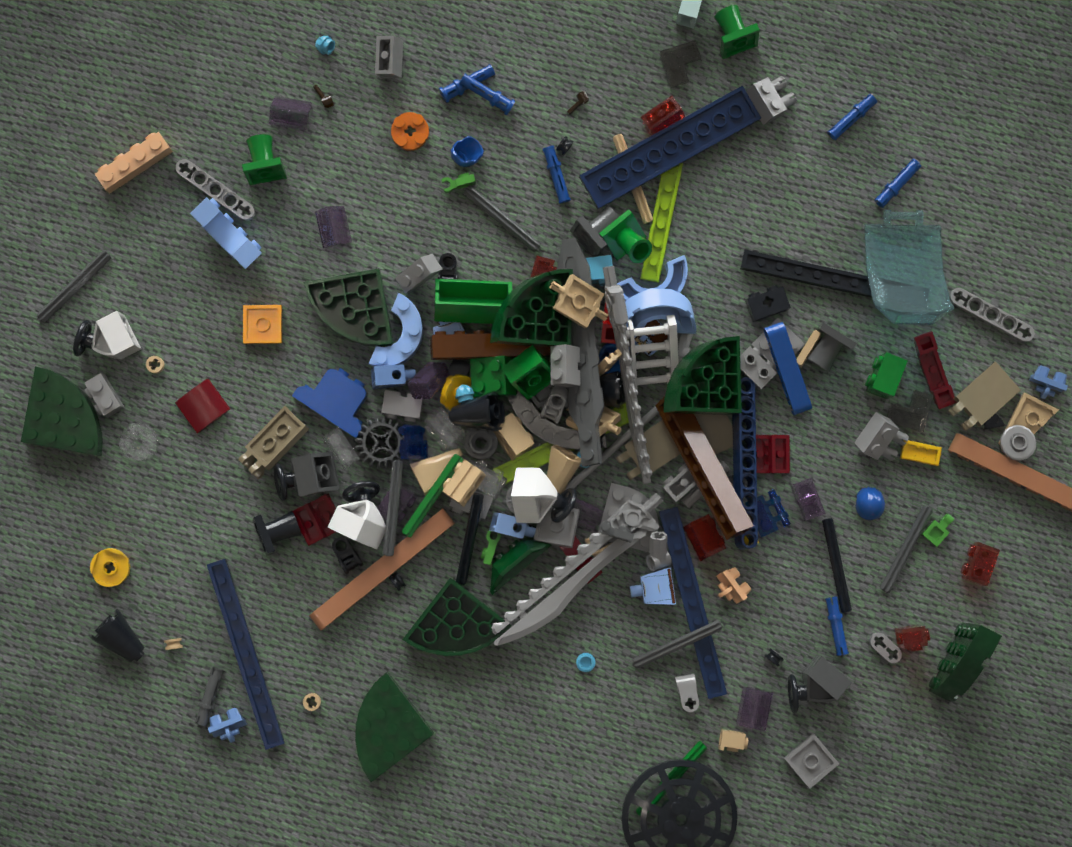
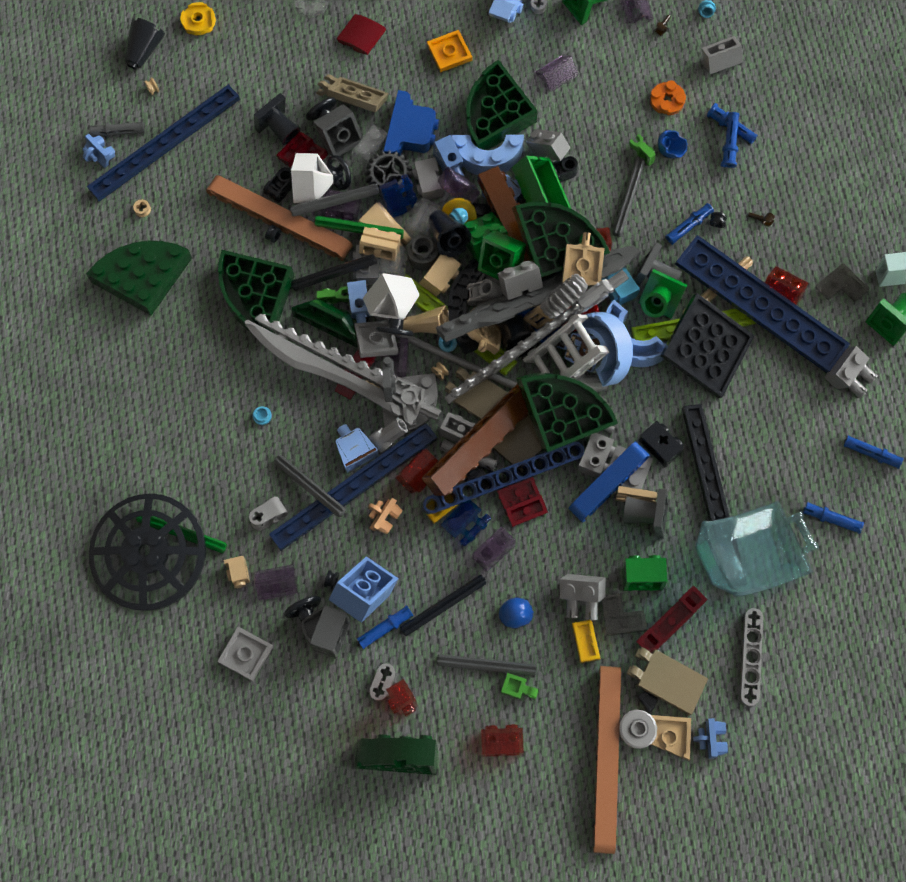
camera: 75 degrees right, 15 degrees down
(609, 334) = (563, 296): none -> light grey gear
(611, 477) = (440, 371): none -> tan bush
(693, 218) = (707, 345): none -> black plate
(802, 632) = (363, 589): none -> medium blue brick

